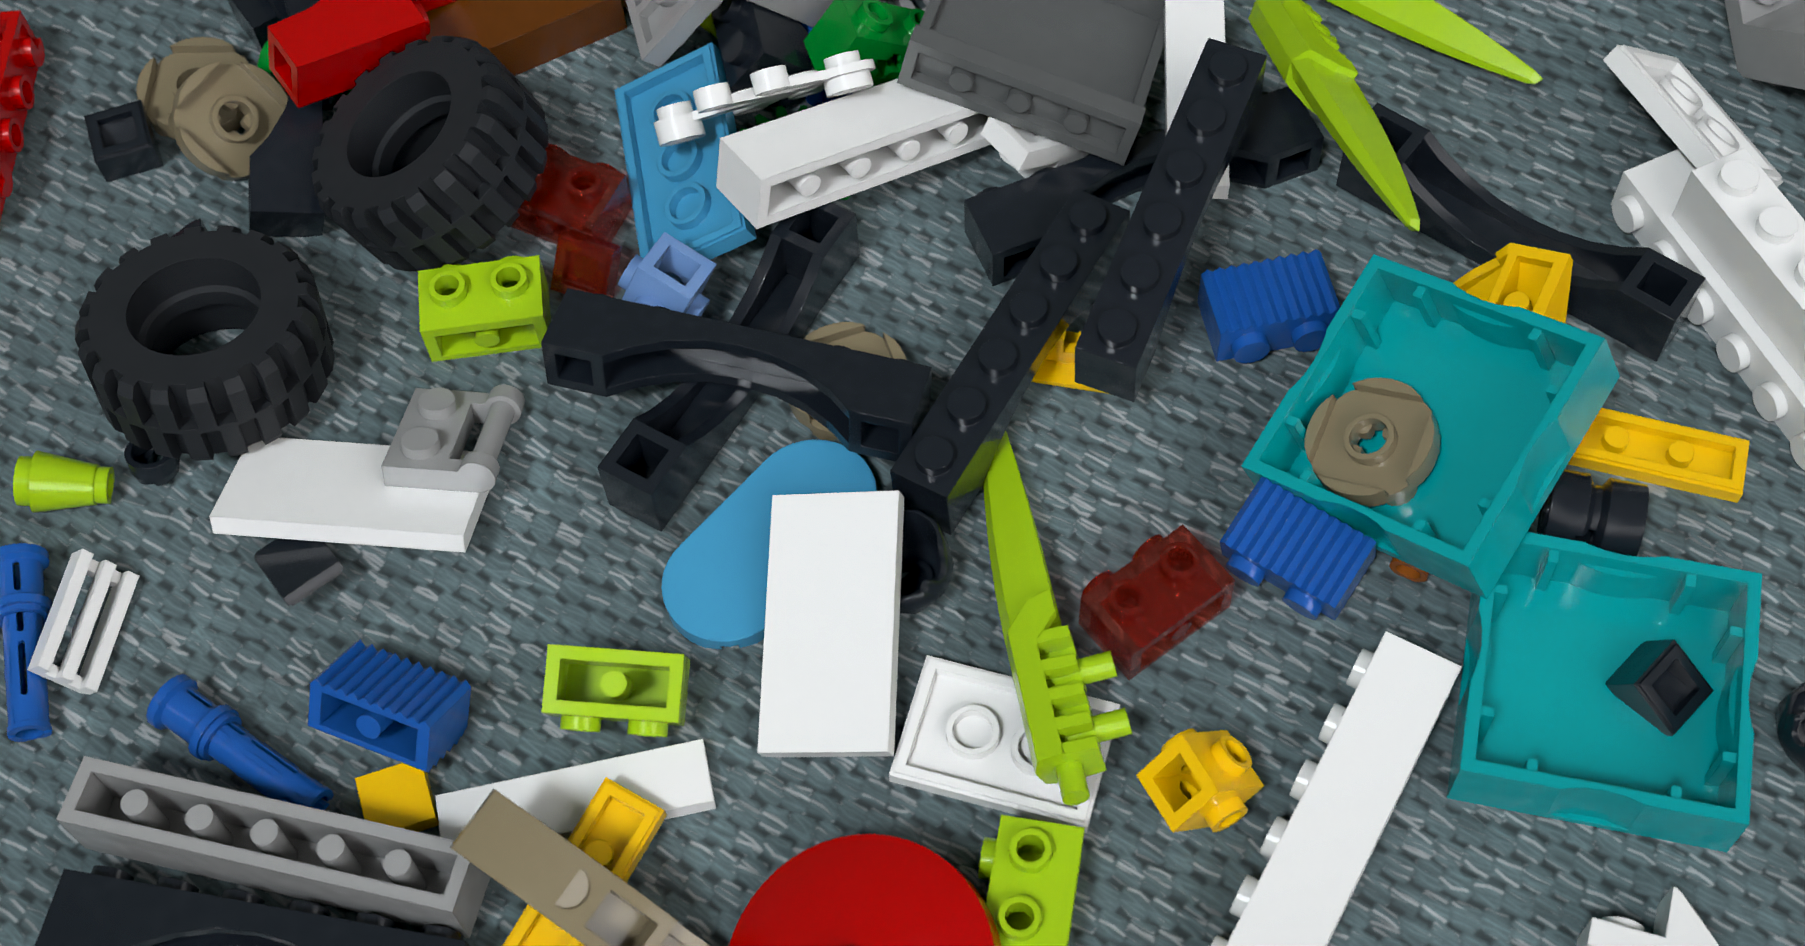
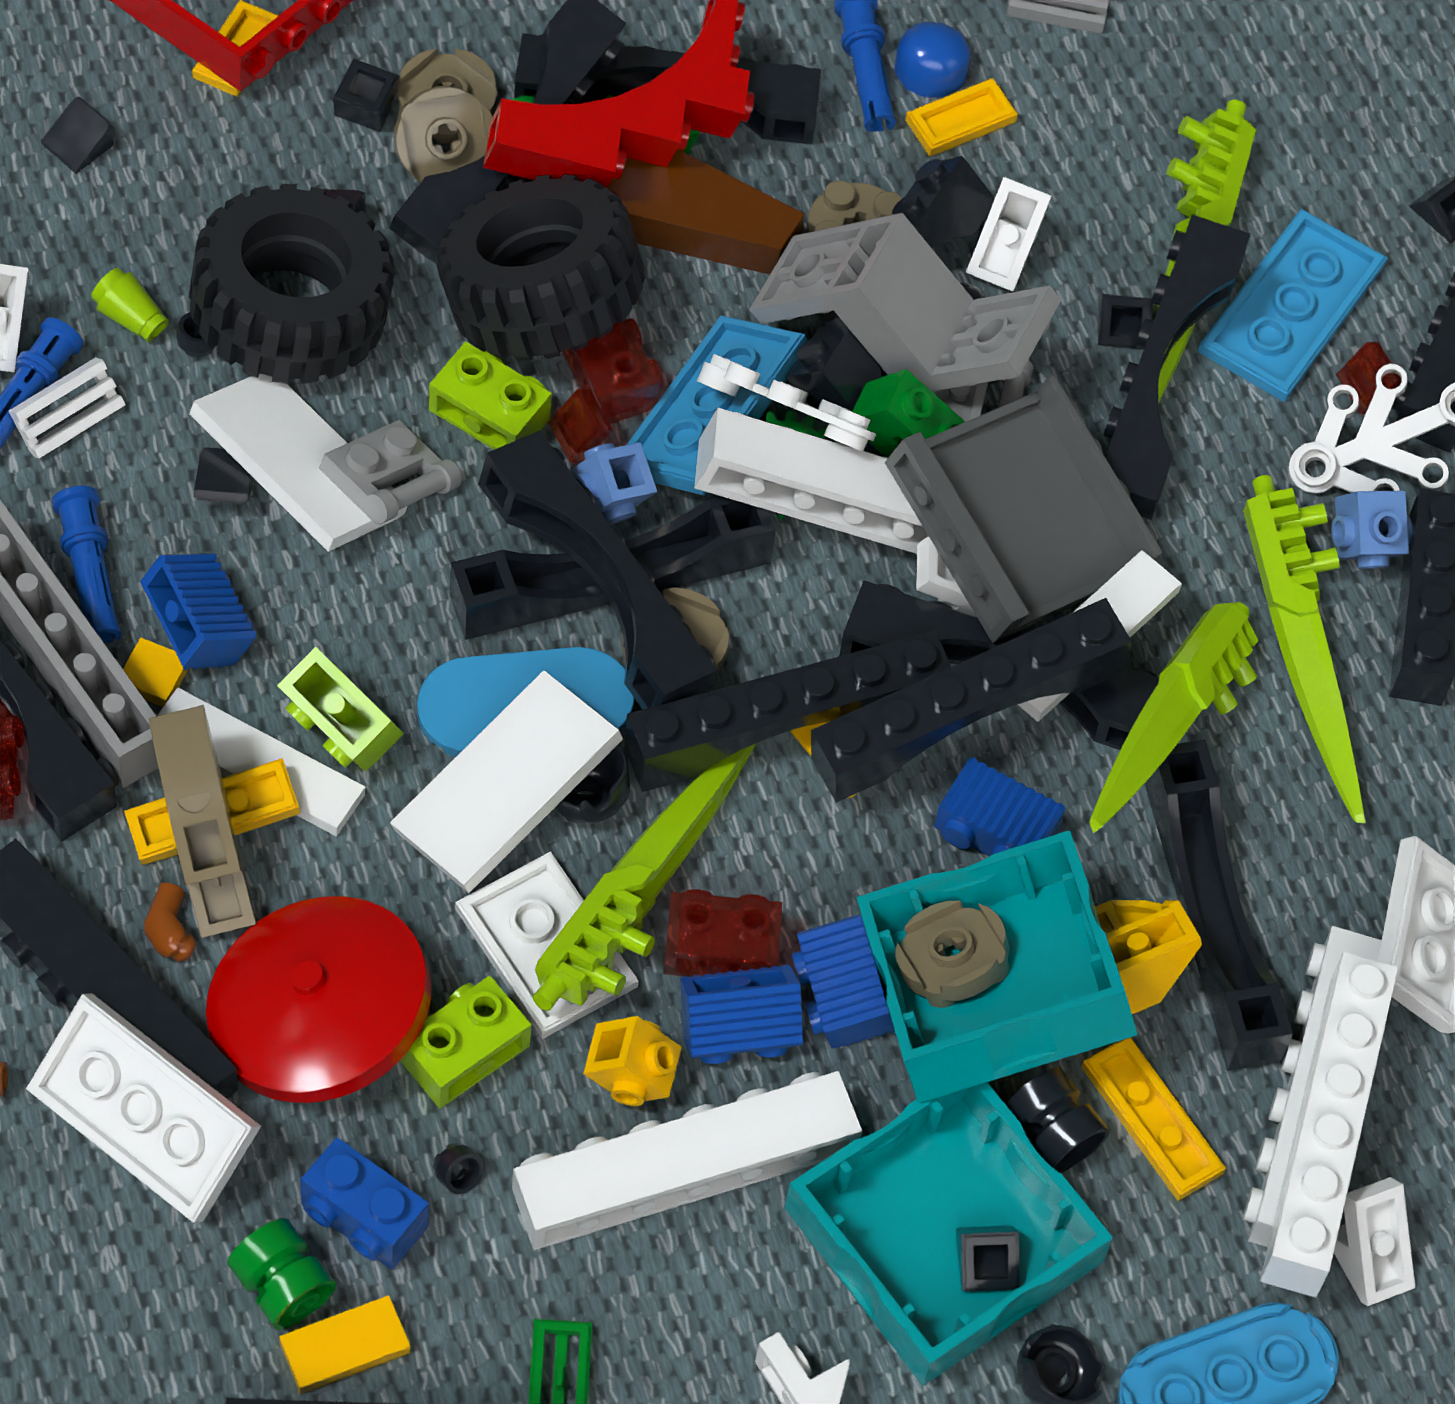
camera: 30 degrees right, 0 degrees up
(1246, 652) = (741, 1013): none -> blue brick

